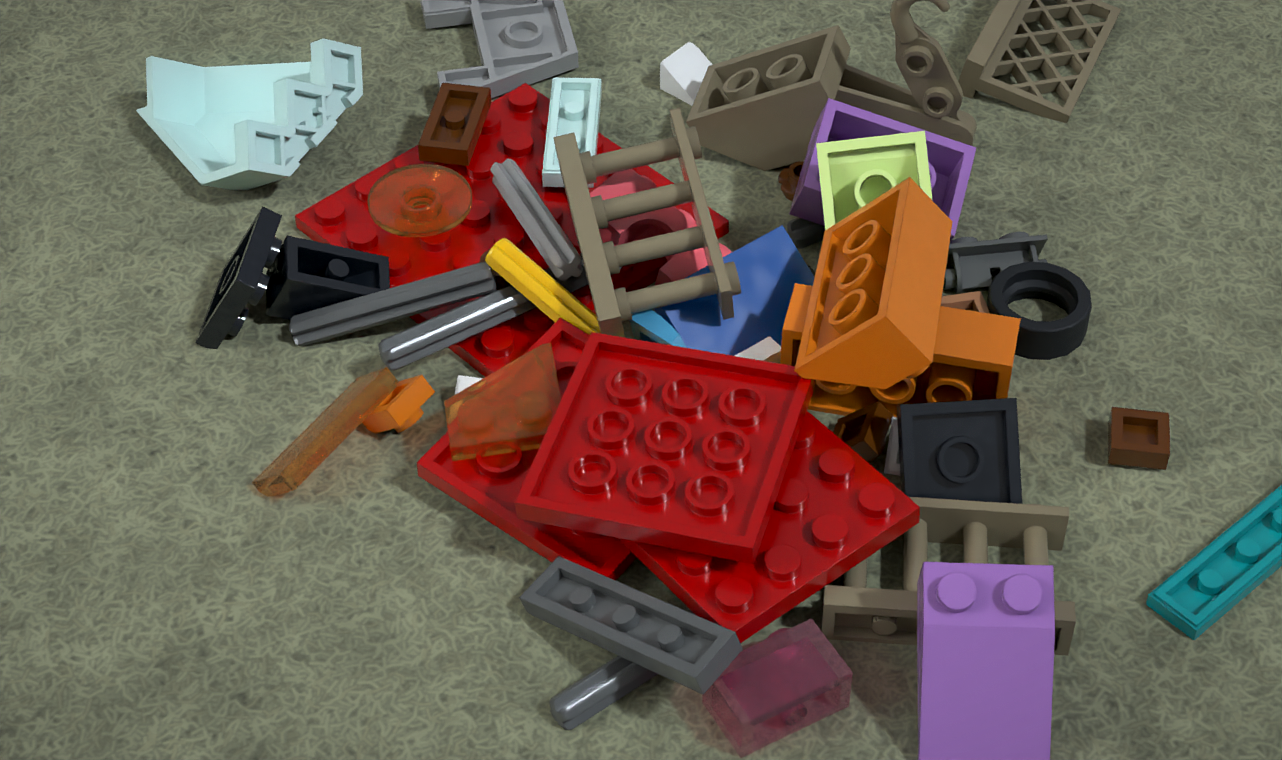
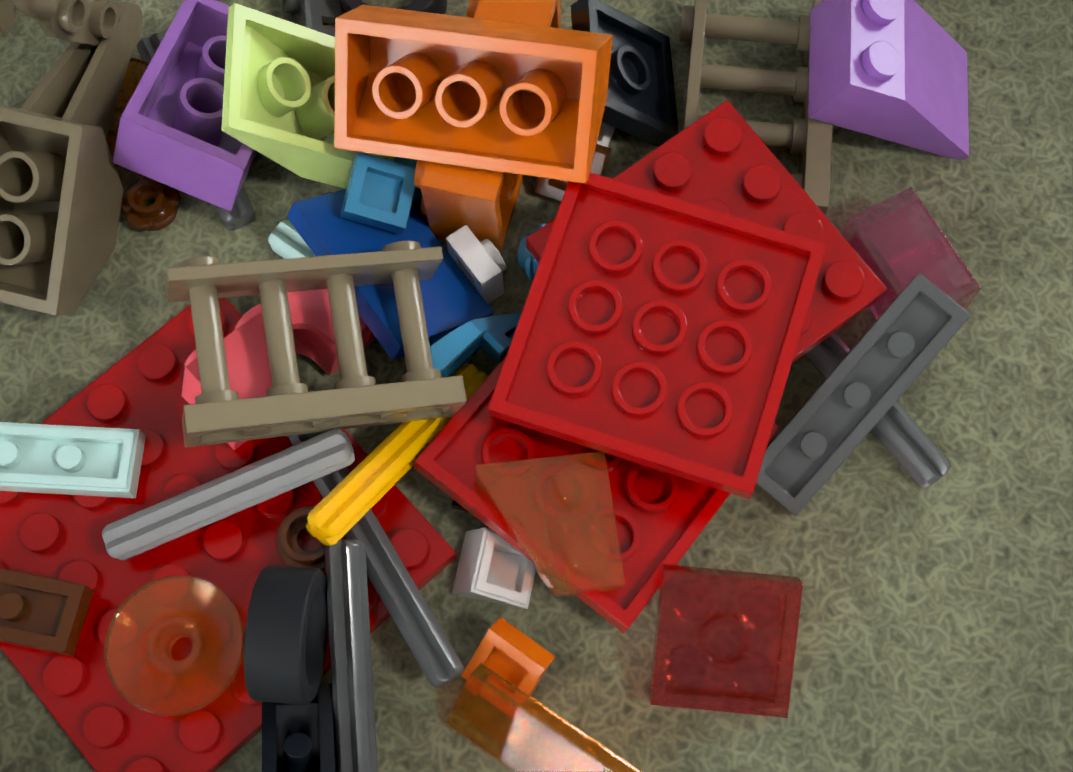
camera: 85 degrees left, 25 degrees up
(404, 534) = (725, 640): none -> clear red plate
(415, 214) = (286, 635): none -> black tyre
(788, 269) = (379, 193): none -> dark azure plate

